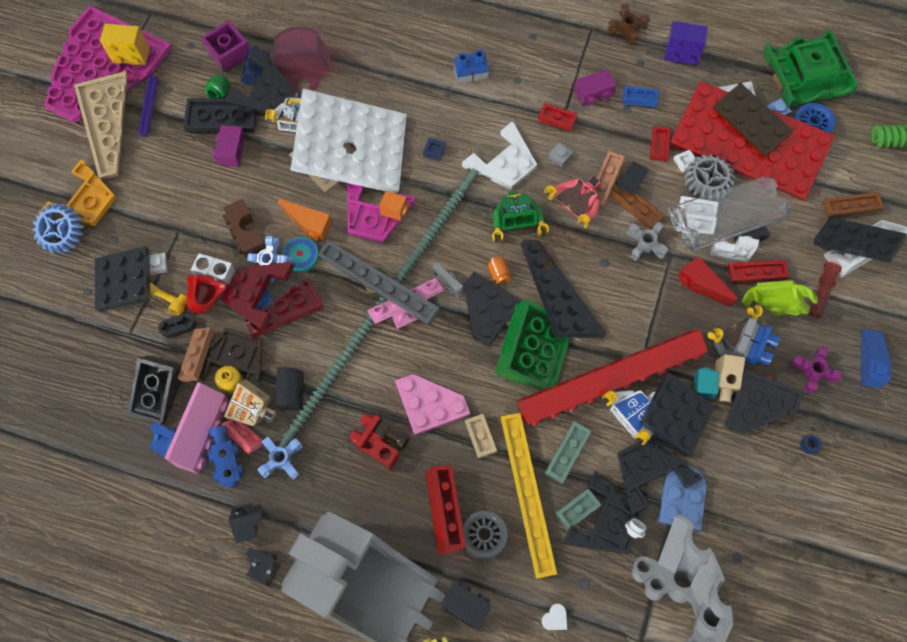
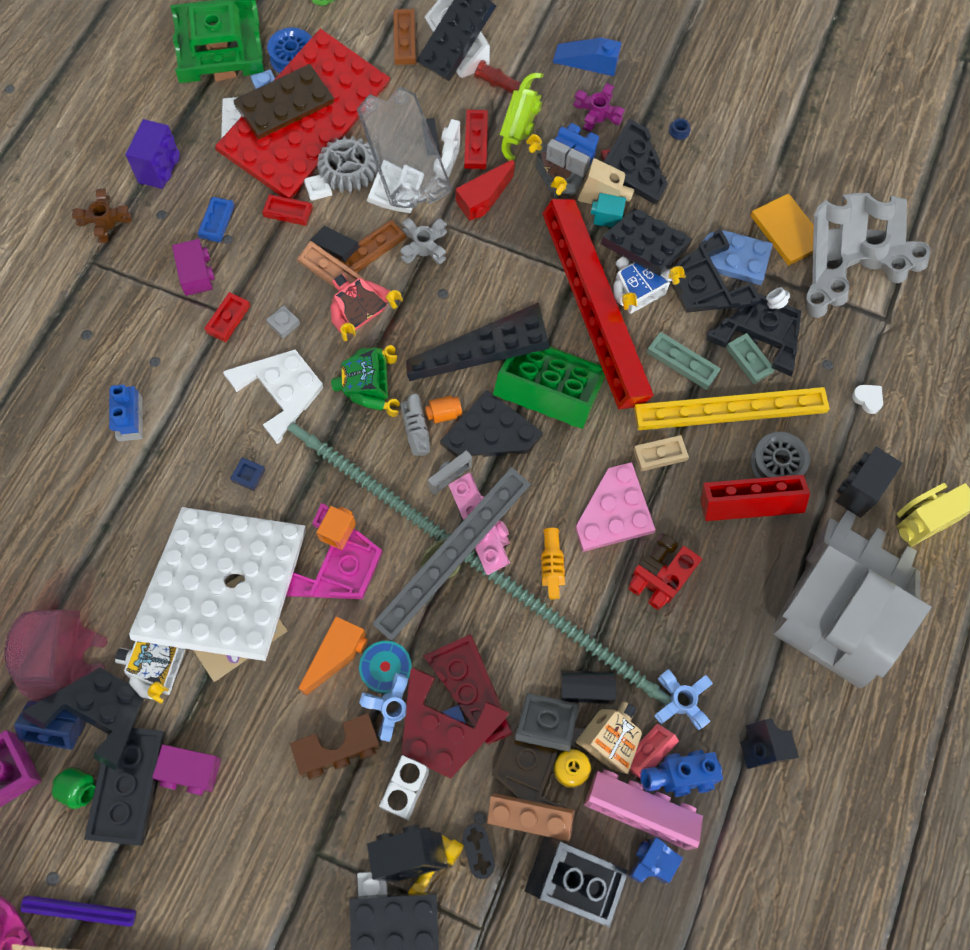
camera: 90 degrees left, 0 degrees up
(169, 274) = (406, 854): none -> black brick
(203, 296) = (440, 804): red piece -> none
(260, 360) = (547, 722): none -> dark grey tile
(262, 567) = (824, 724): black brick -> none
(380, 359) = (552, 563): none -> light orange hinge
(483, 253) = (415, 425): none -> light grey hinge
(728, 541) = (786, 228): none -> light orange tile

